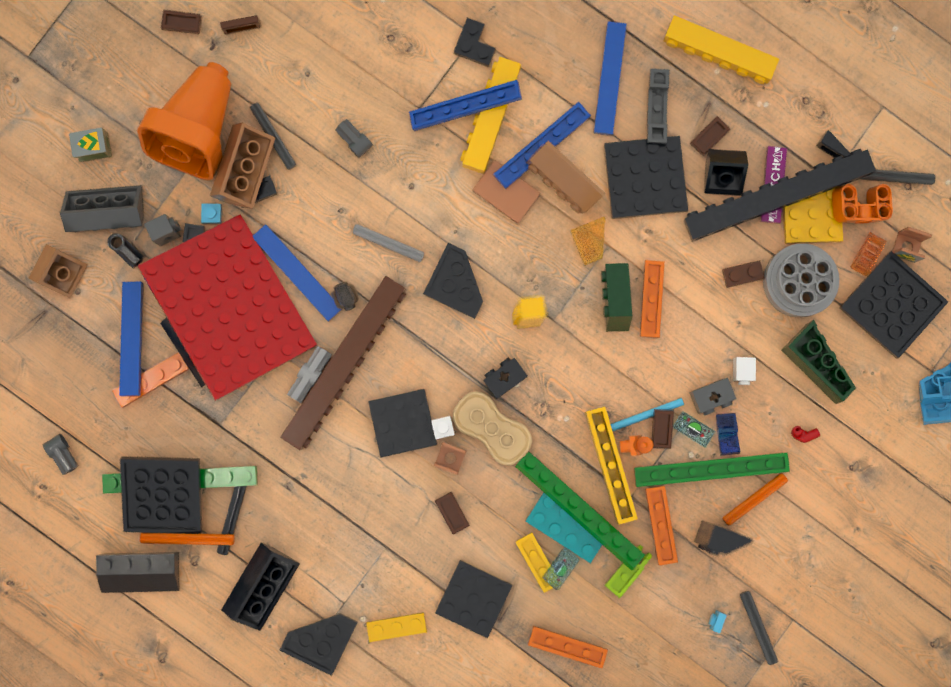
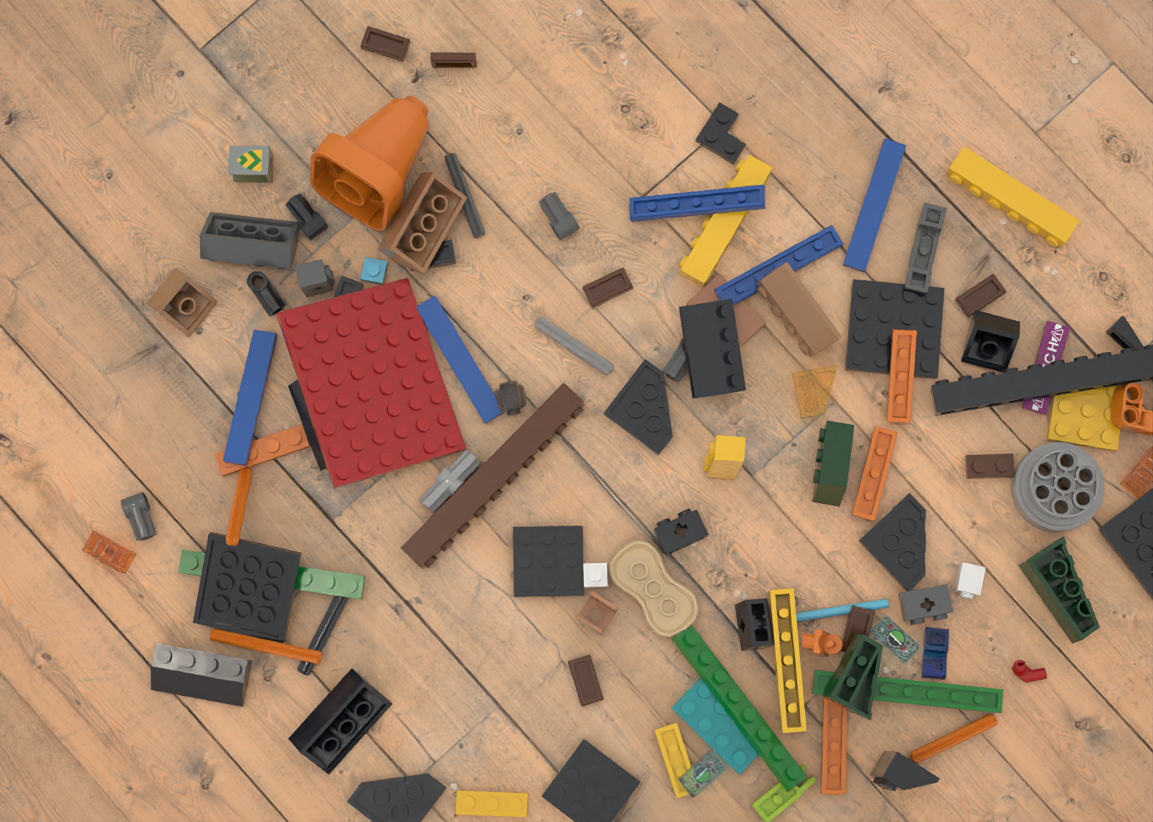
camera: 20 degrees right, 5 degrees down
(54, 492) = (121, 559): none -> clear orange slope
(140, 431) = (238, 506): none -> orange axle
(149, 182) = (309, 220): none -> black piece
(406, 189) = (607, 287): none -> reddish brown tile
(477, 238) = (677, 364): none -> dark grey piece
(501, 223) = (712, 348): none -> black slope
(578, 441) = (754, 624): none -> black brick
(658, 215) = (901, 375): none -> orange plate
(669, 467) = (856, 676): none -> dark green wedge
(683, 350) = (900, 542): none -> black plate

